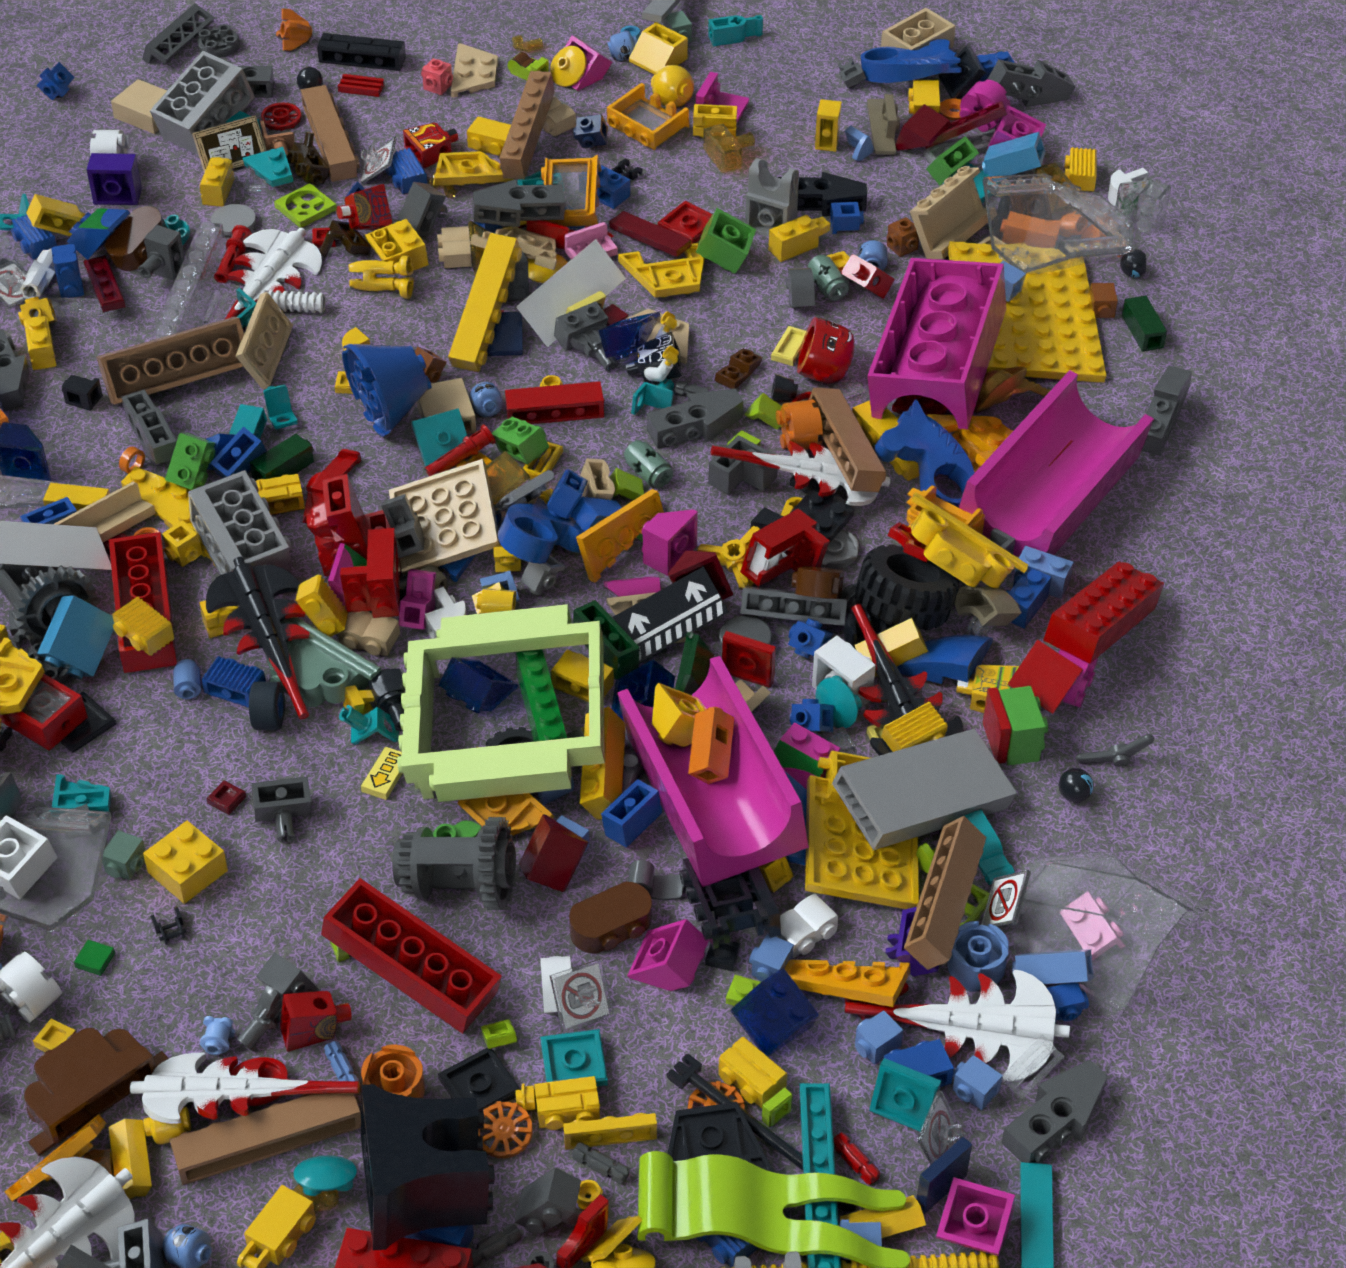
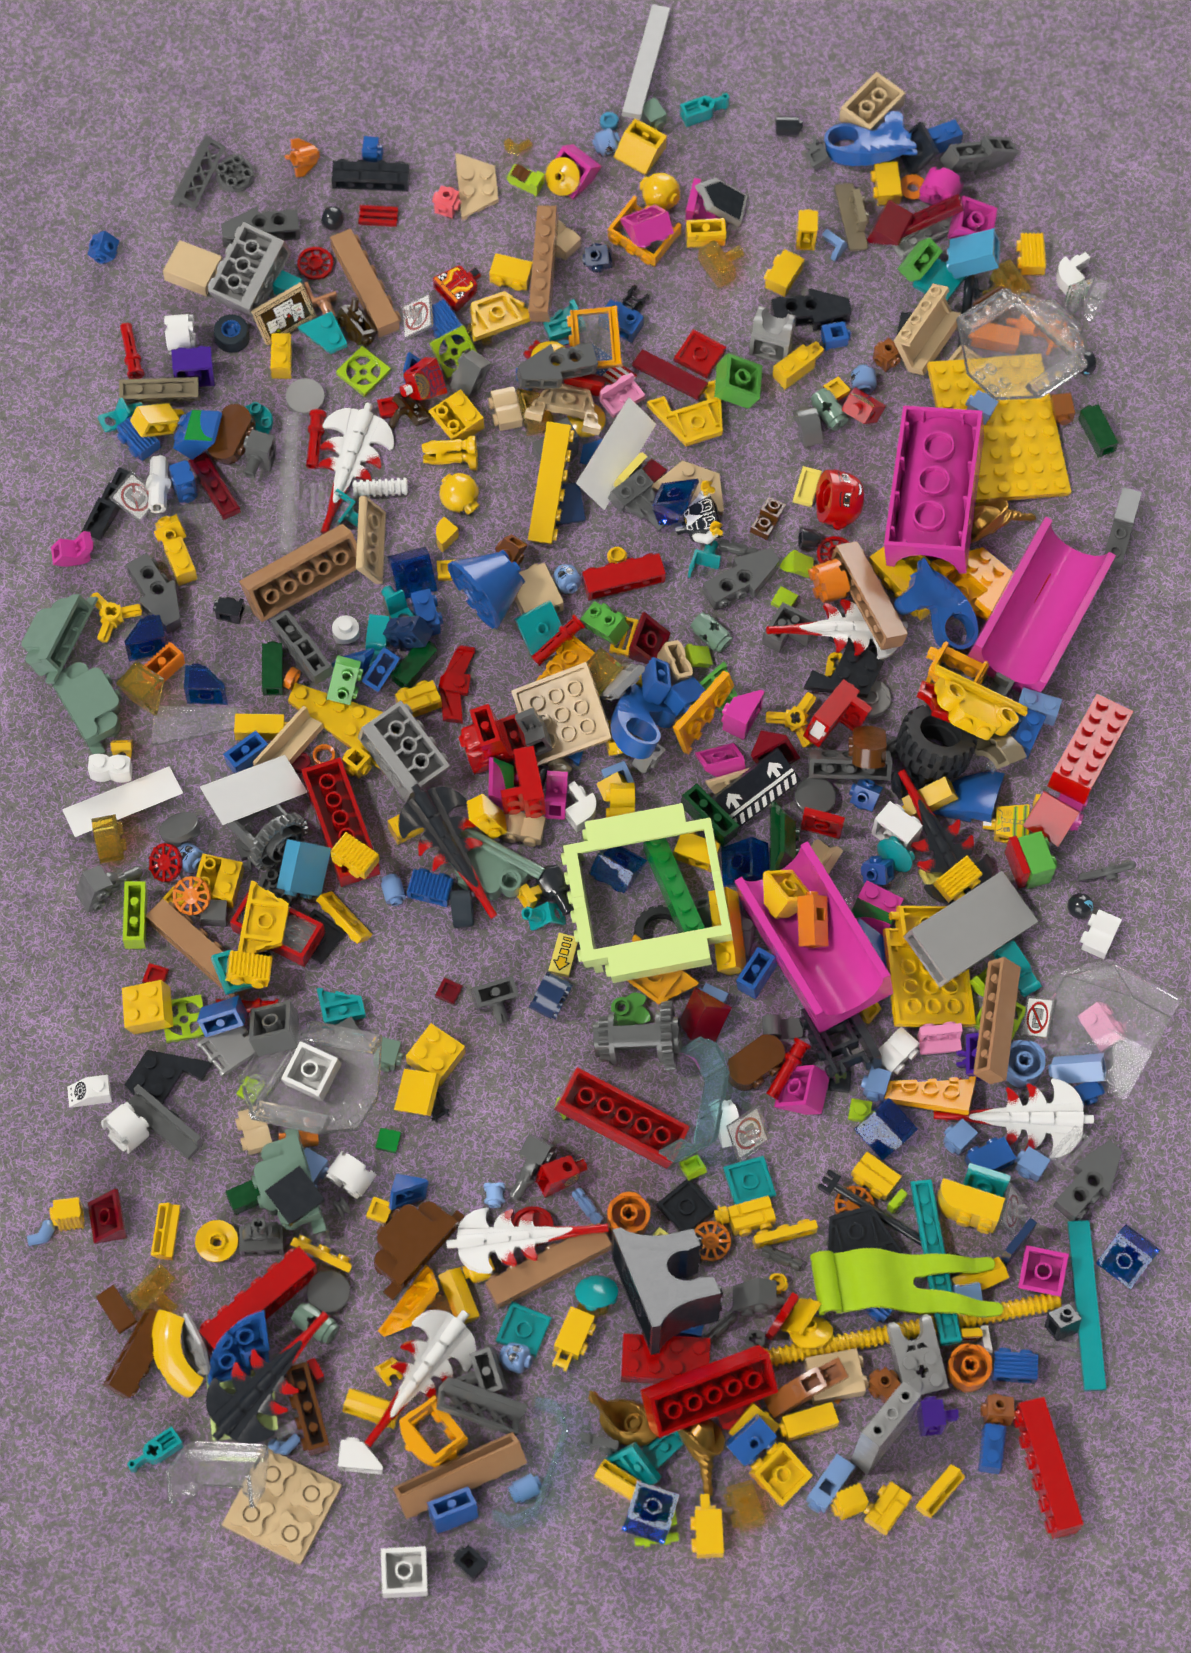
camera: 10 degrees left, 20 degrees up
(52, 168) = (132, 358): none -> red pin
(85, 193) = (159, 390): none -> dark tan fence
(97, 1013) = (407, 1190): none -> blue slope
(112, 443) = (272, 668): none -> dark green brick
(116, 702) = (344, 917): none -> yellow plate
(147, 899) = (417, 1092): none -> yellow tile
(169, 160) = (231, 333): none -> black wheel
(211, 421) = (345, 630): none -> white piece
(213, 1210) = (523, 1327): none -> teal tile
(279, 422) = (408, 632): none -> dark blue brick
(306, 377) = (412, 571): none -> clear blue slope
(309, 414) = (425, 605): none -> blue brick
(353, 808) = (549, 994): none -> dark blue brick
(368, 27) = (371, 149): none -> blue brick
(381, 310) = (459, 493): none -> yellow brick
(404, 176) = (435, 345): none -> lime piece
(547, 903) = (716, 1075): none -> clear light blue windscreen
(565, 454) = (647, 639): none -> dark red slope
(650, 102) = (648, 226): none -> dark pink slope
(660, 916) = (792, 1060): none -> red pin
(735, 92) = (723, 200): none -> tile
(800, 156) = (784, 272): none -> yellow brick
(823, 49) = (788, 126): none -> black brick
(856, 1158) = (955, 1232): red axle -> none
(866, 914) = (940, 1038): none -> bright pink bracket
(879, 1120) = (969, 1206): none -> yellow brick
(1100, 820) = (1100, 934): none -> white brick
(1104, 1217) = (1128, 1256): none -> clear blue slope

